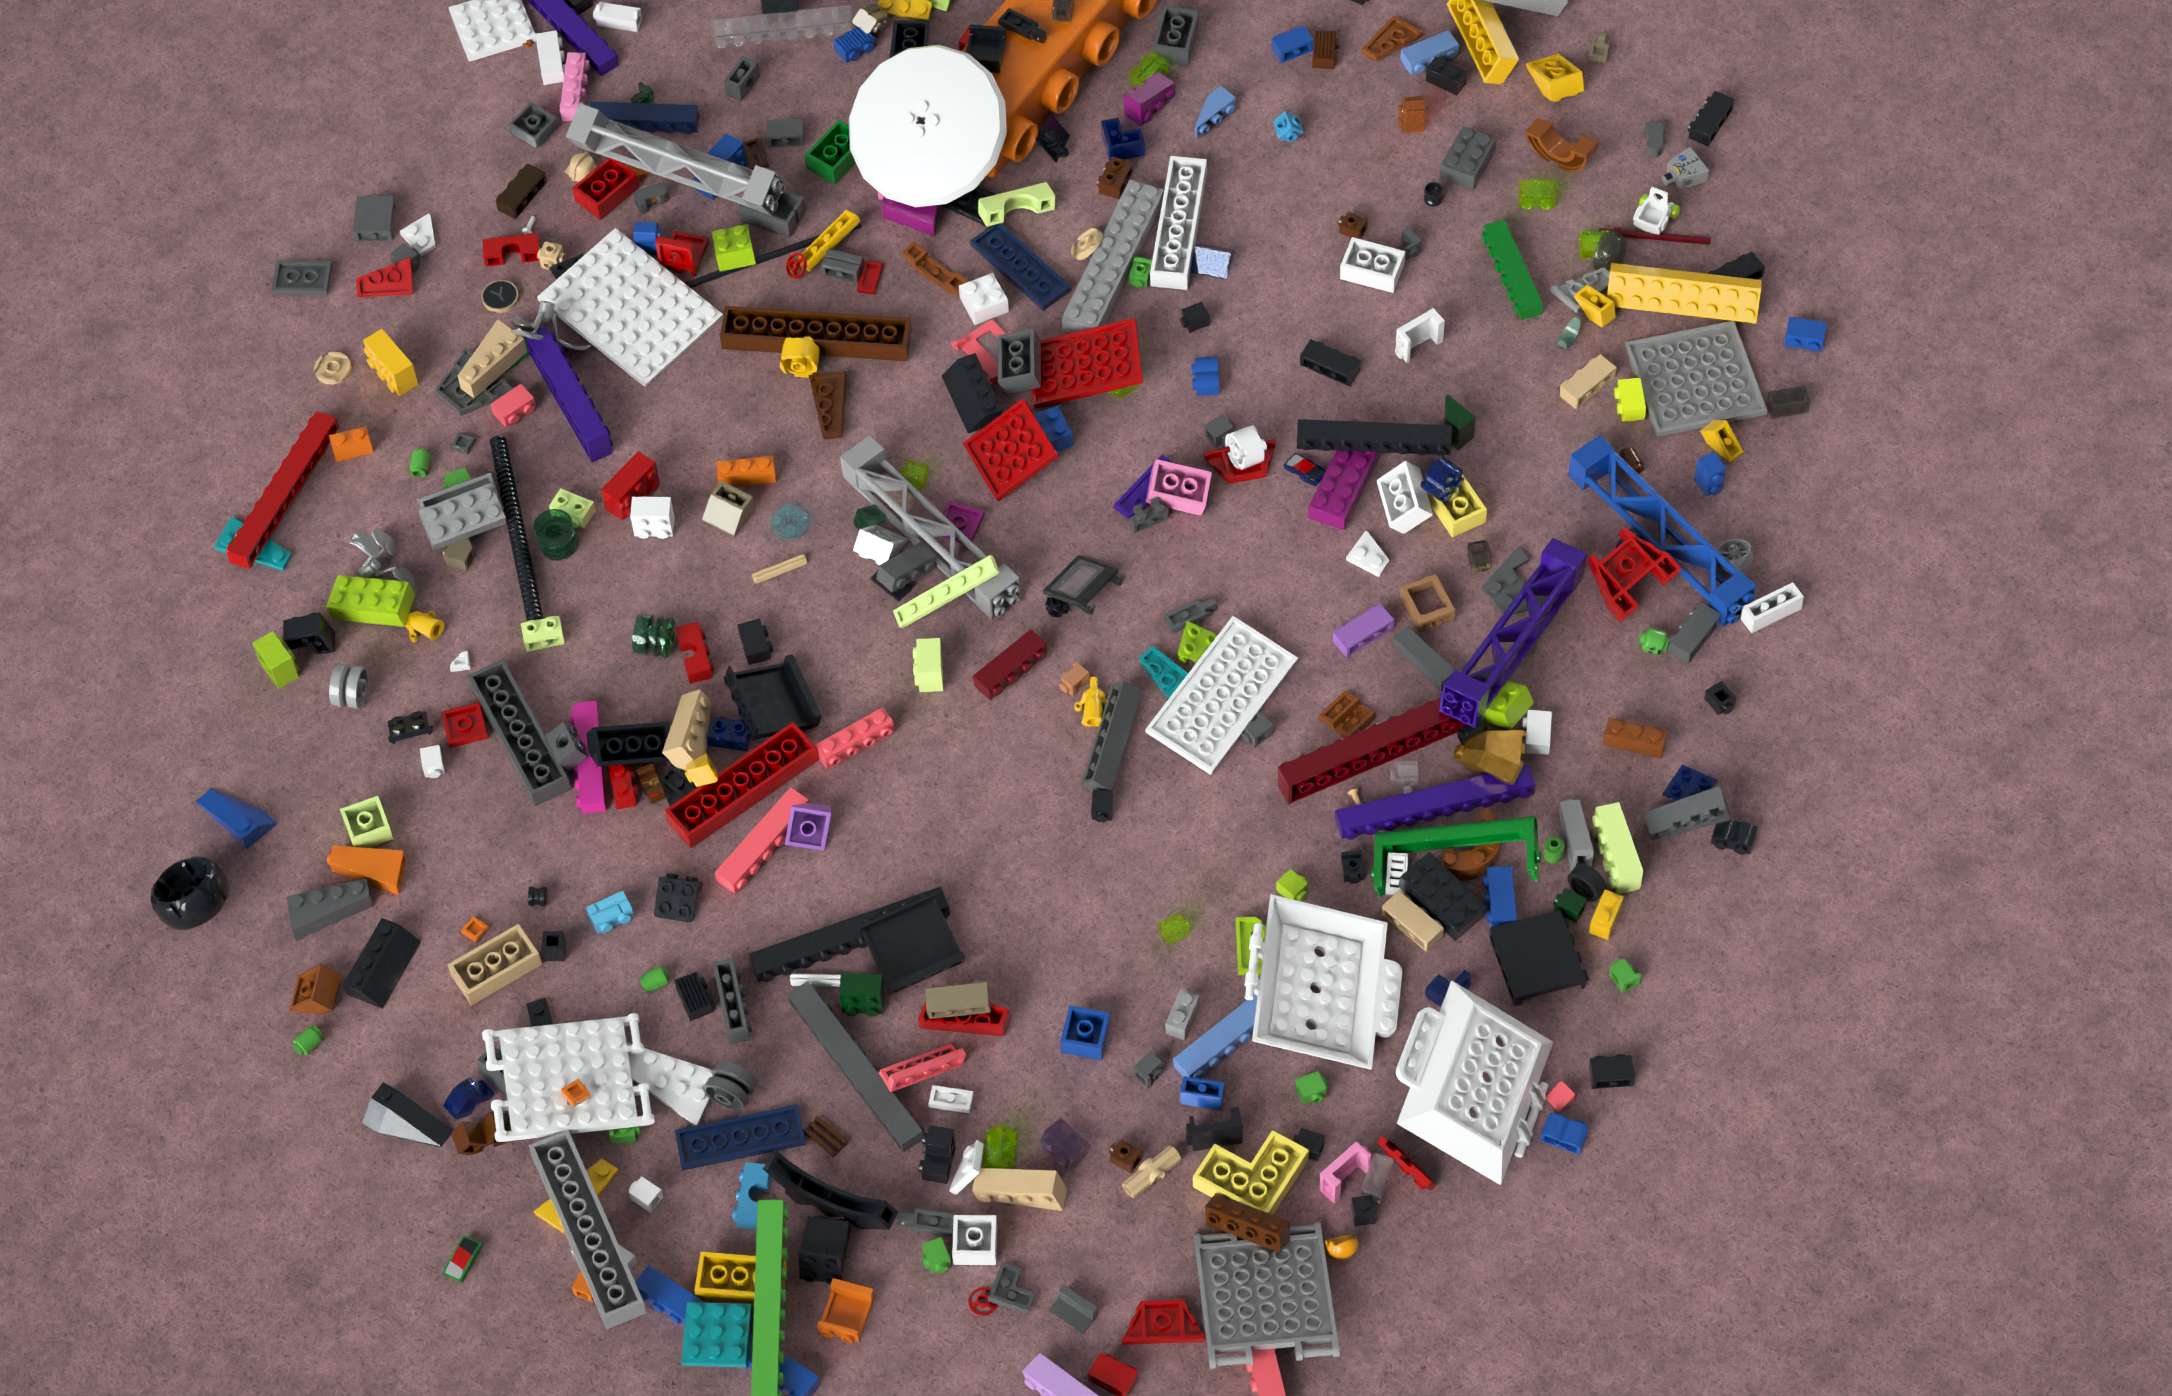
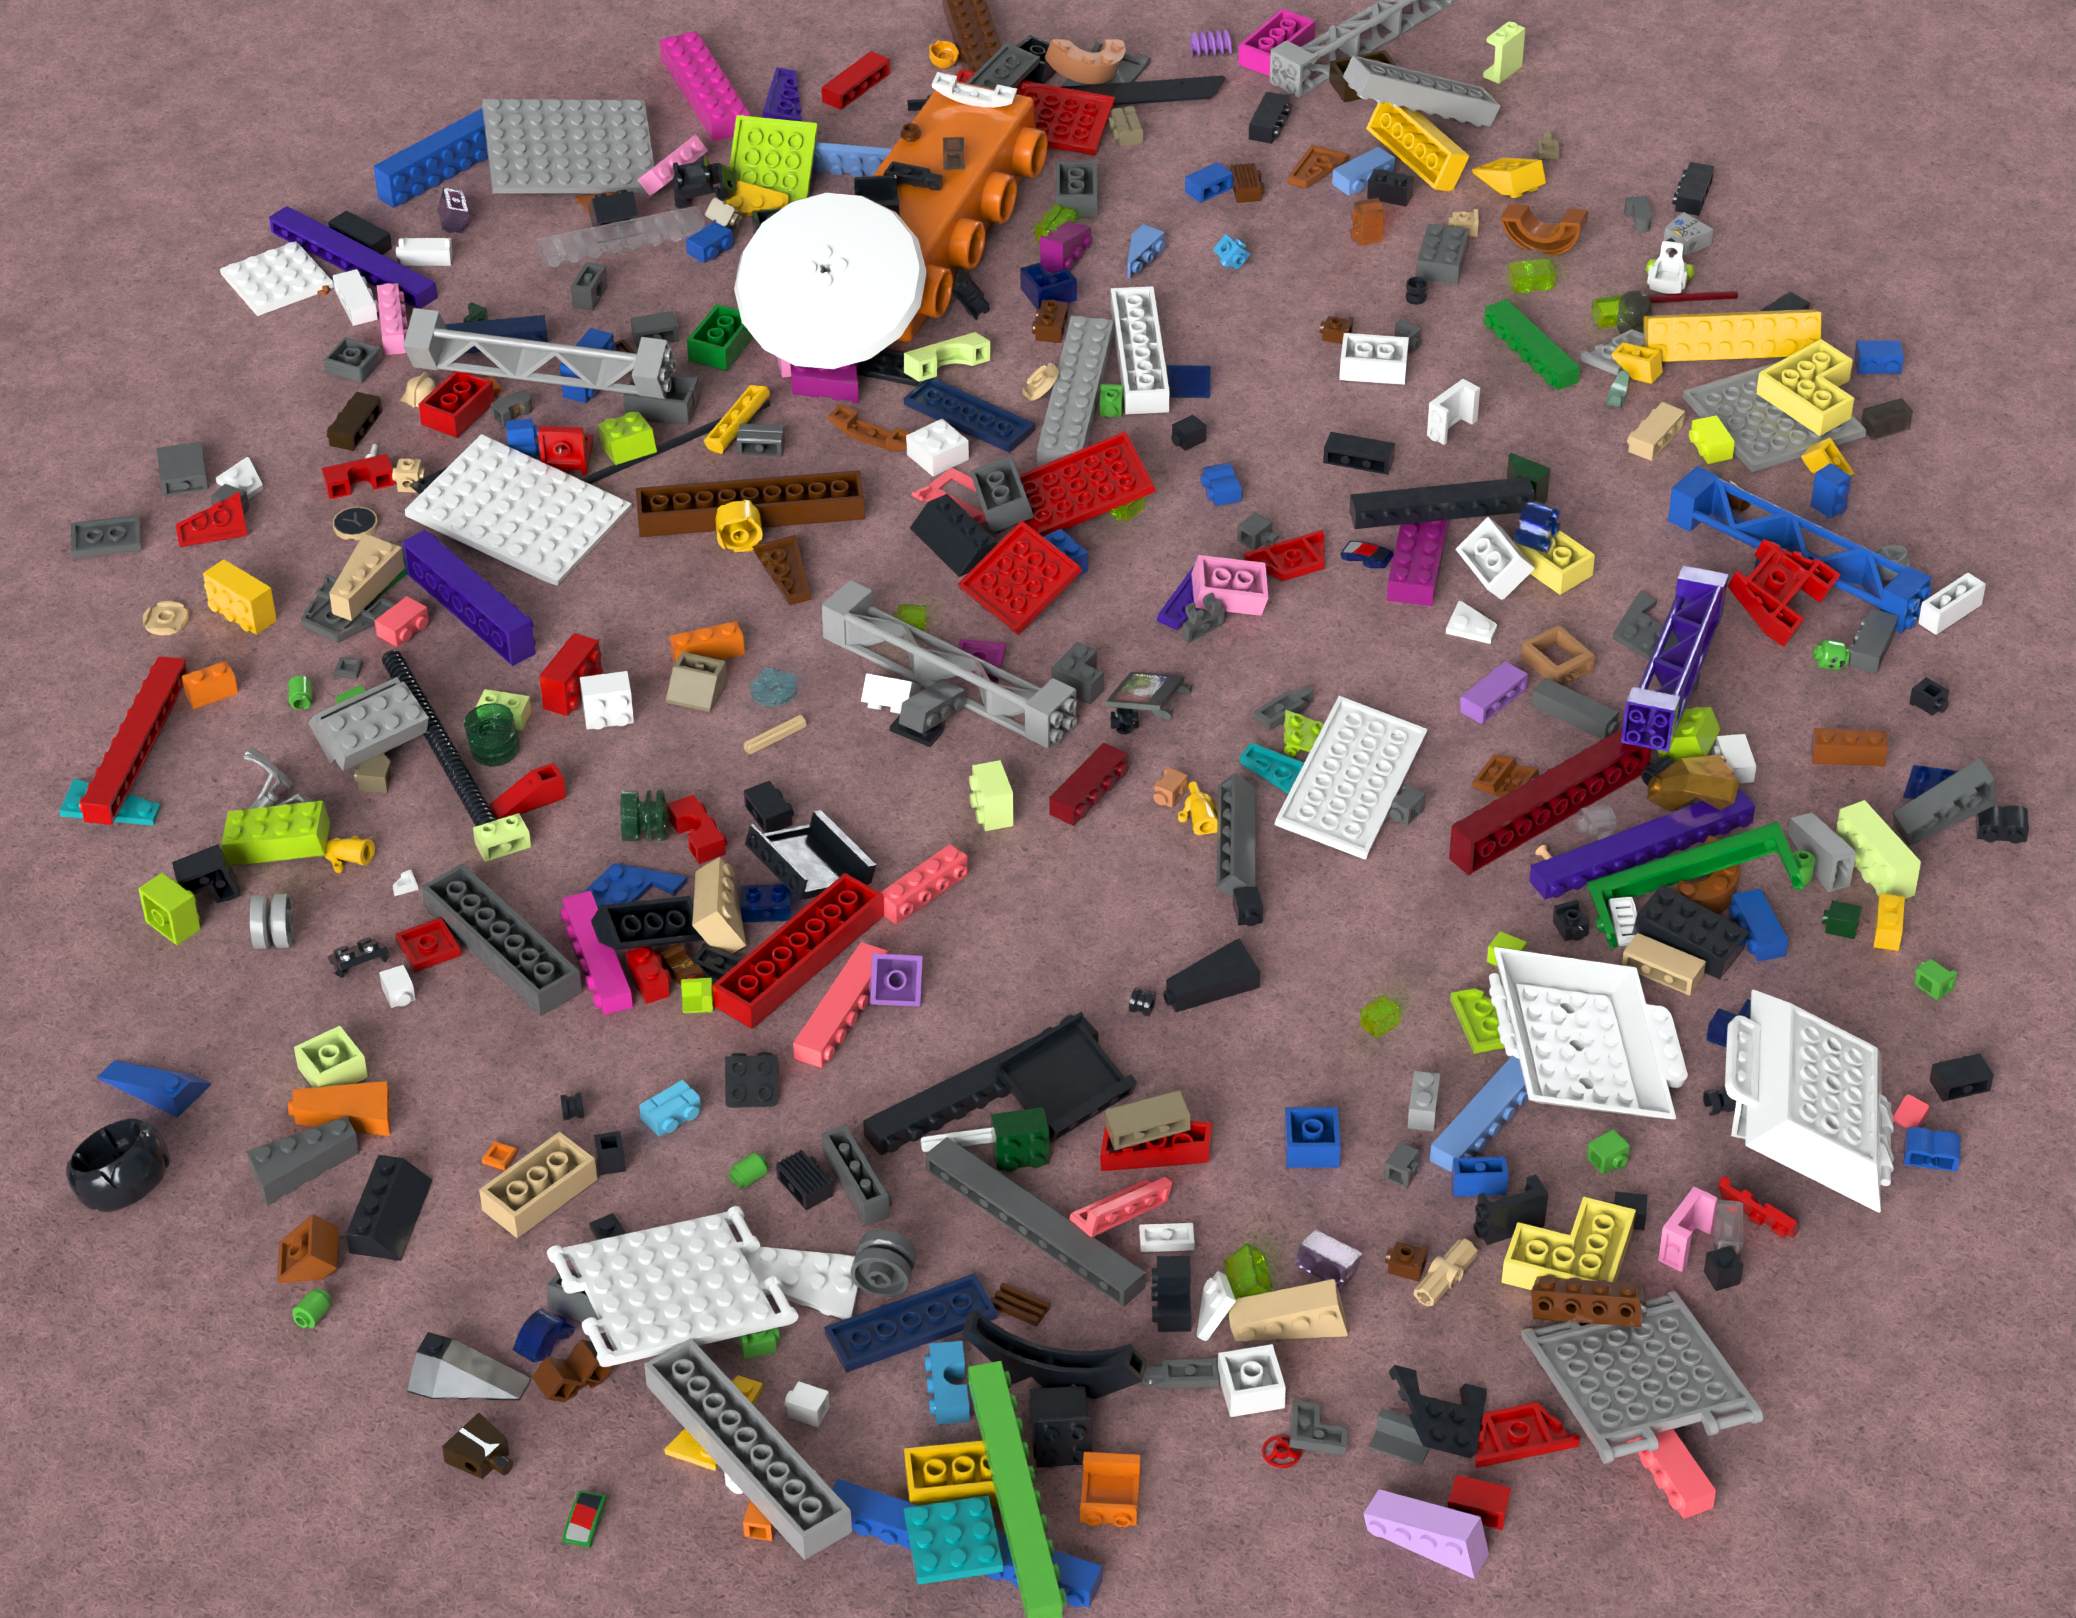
camera: 15 degrees left, 15 degrees down
(400, 1185) = (478, 1449): none -> dark brown torso
(545, 313) = (421, 518): light grey plant -> none
(566, 745) = (568, 939): dark grey brick -> none
(575, 594) = (532, 791): none -> red slope
(575, 1093) = (689, 1296): orange tile -> none
(626, 695) = (630, 883): none -> blue wing
(655, 811) = (697, 995): none -> lime panel
(701, 771) = (747, 937): yellow slope -> none
(790, 265) = (698, 444): red piece -> none
(868, 516) = (865, 666): clear green bracket -> none
(870, 277) = (795, 448): red tile -> none
(935, 1256) = (1206, 1408): bright green brick -> none
(946, 591) = (991, 718): yellowish green tile -> none
(993, 880) = (1142, 1001): none -> black wheel
(1030, 552) = (1080, 671): none -> dark grey brick
(1054, 869) = (1213, 978): none -> black slope
(1105, 1307) = (1442, 1423): none -> black wing
(1245, 447) = (1295, 535): white brick -> none
(1342, 1246) = (1713, 1312): light orange hair -> none
(1479, 556) = (1601, 603): clear smoke brick -> none
(1498, 125) = (1465, 220): none -> tan brick
(1537, 956) = (1824, 973): black panel -> none
(1587, 882) = (1860, 879): black tyre -> none
(1722, 361) = (1808, 387): none -> light yellow brick

